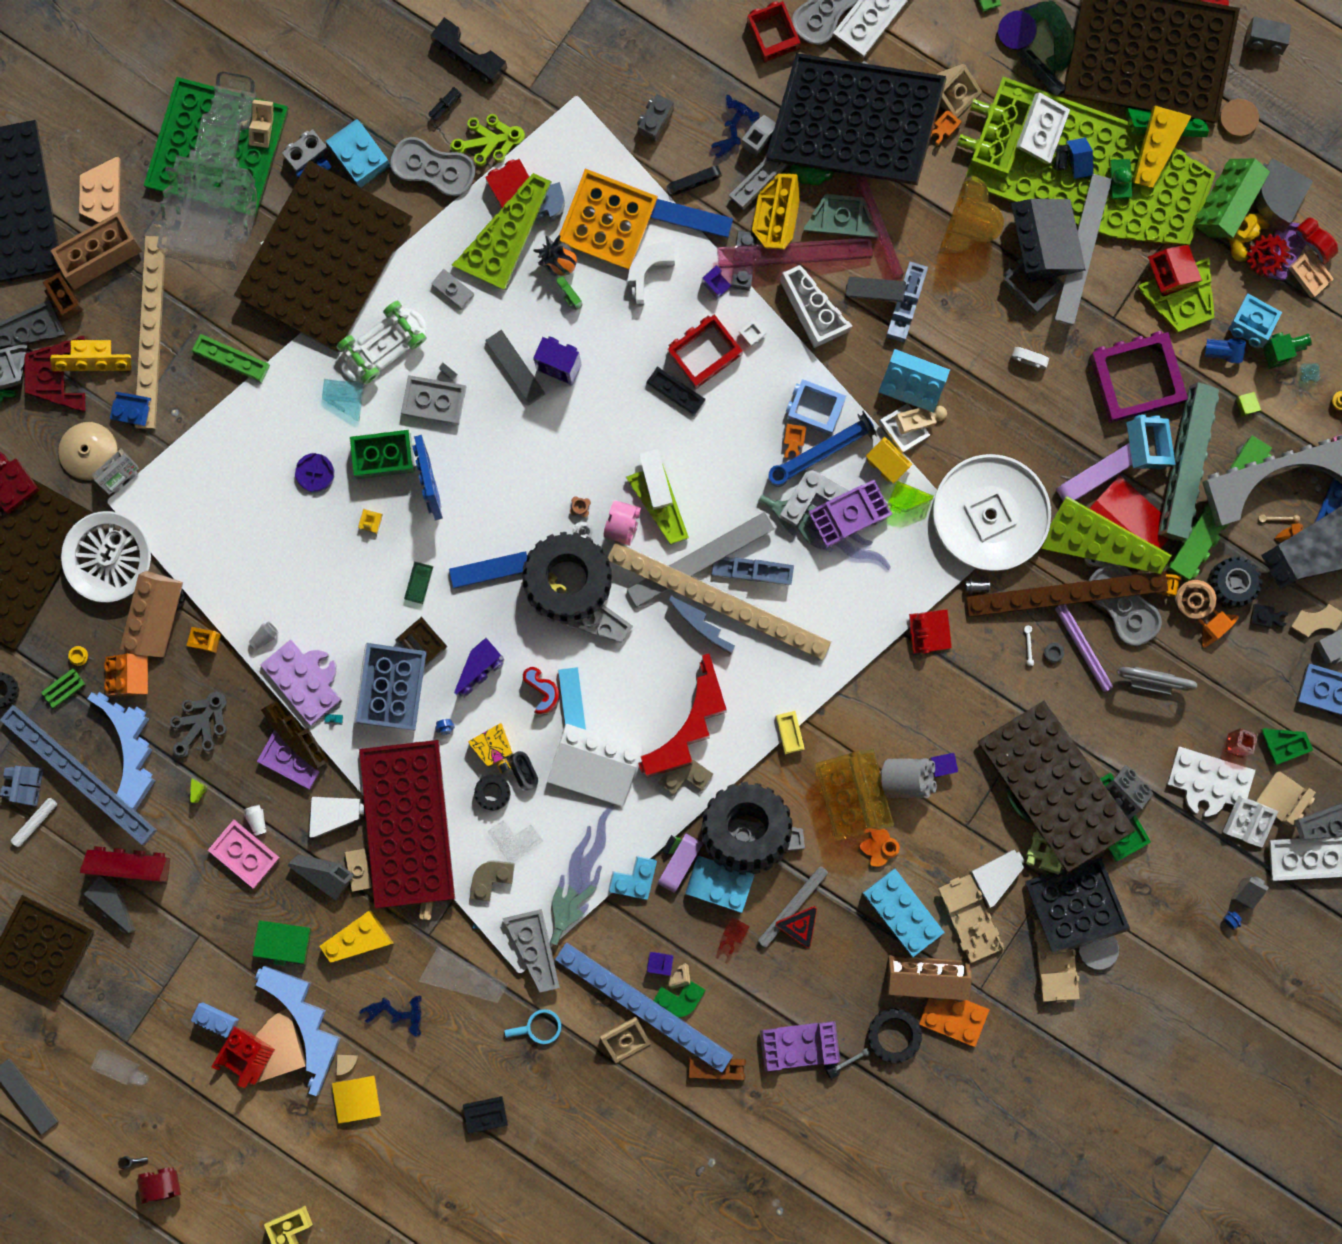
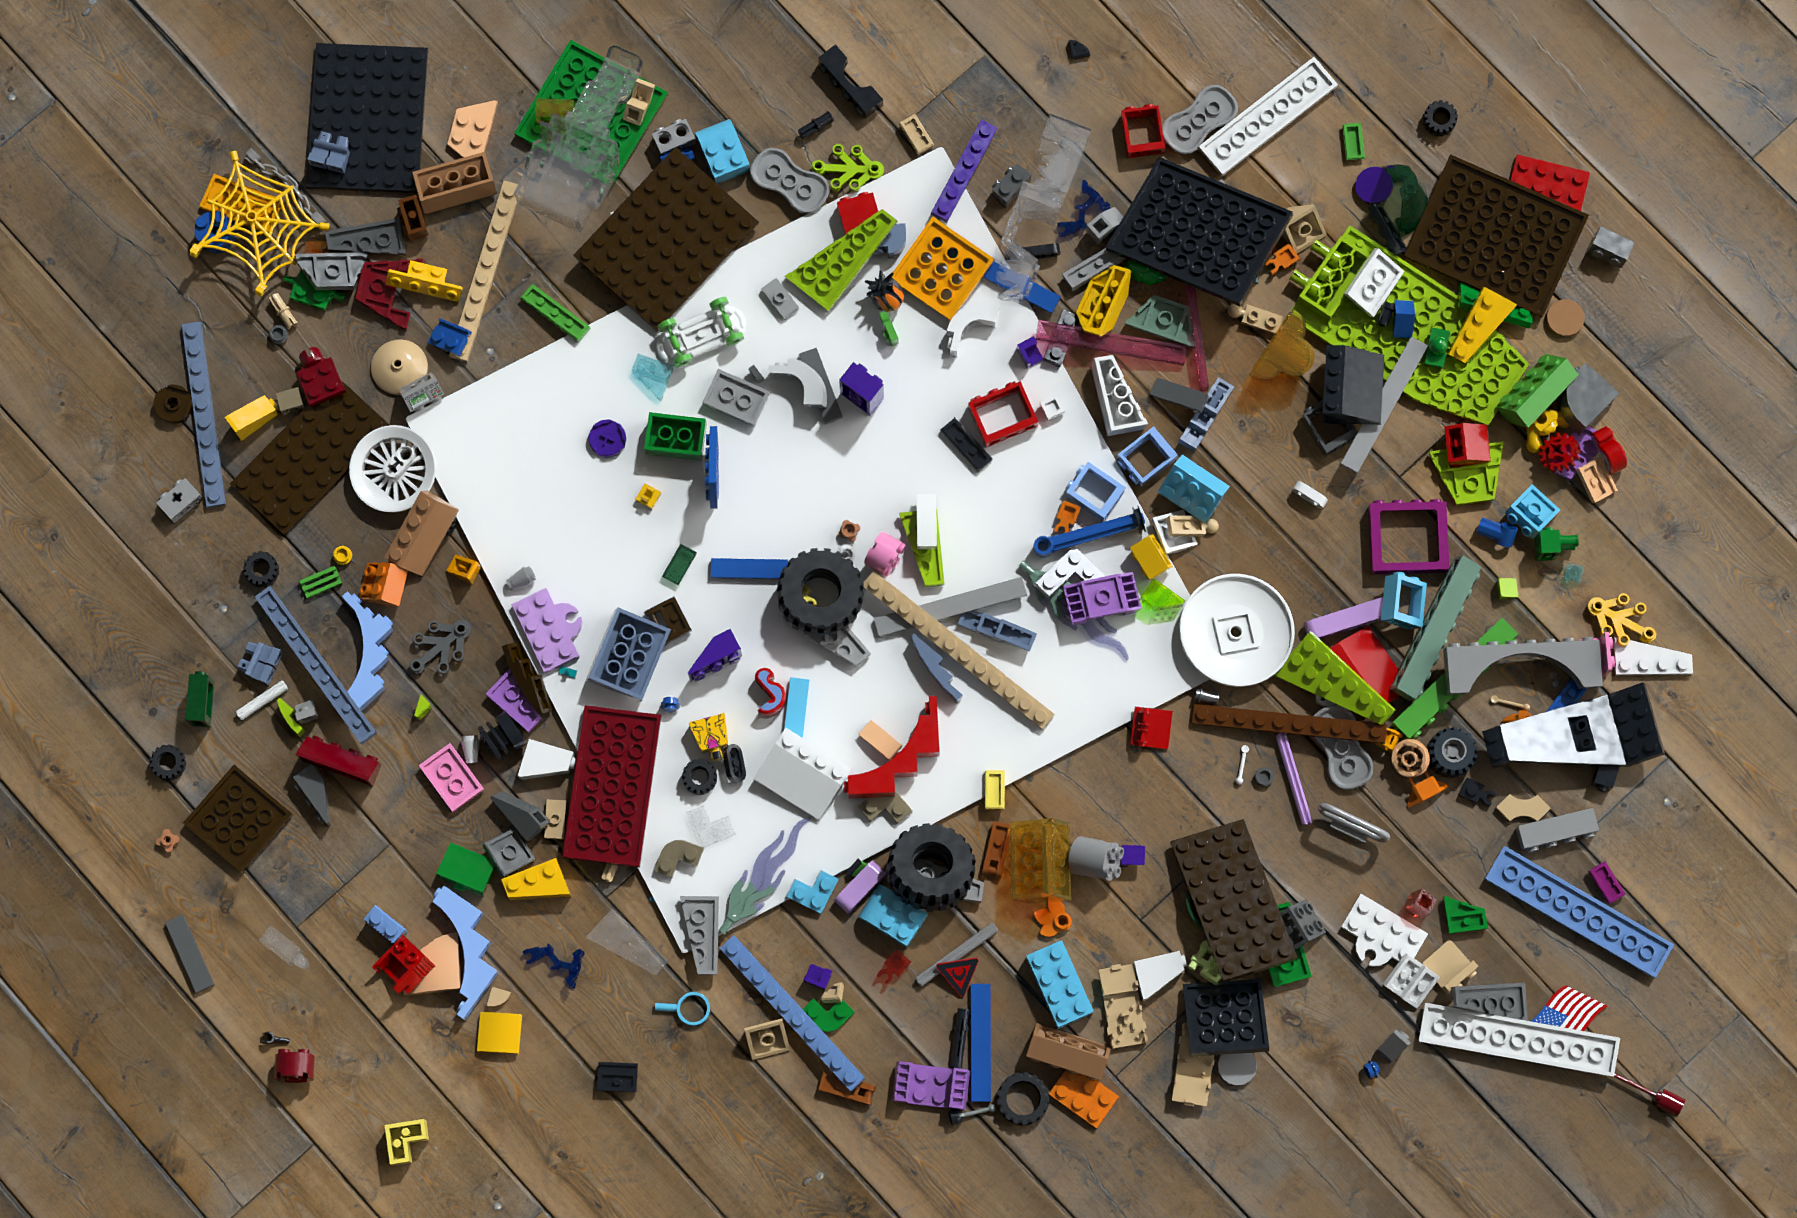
camera: 10 degrees right, 5 degrees down
(63, 830) = (288, 713): none -> lime slope
(81, 824) = (306, 712): none -> light grey bracket
(168, 151) = (546, 108): none -> clear yellow brick
(283, 800) = (501, 736): none -> black wheel
(320, 916) = (509, 852): none -> dark grey tile
(508, 369) = (814, 387): none -> white arch
(548, 89) = (916, 134): none -> tan plate
(604, 114) = (964, 171): none -> dark purple plate
(664, 711) = (880, 740): none -> light nougat slope
(691, 125) = (1041, 200): none -> clear piece
(807, 791) = (997, 849): none -> dark orange plate
(814, 969) = (962, 1014): none -> black pin
(838, 989) = (980, 1043): none -> blue tile
(871, 344) = (1162, 446): none -> light blue window
(933, 192) = (1256, 318): none -> tan plate

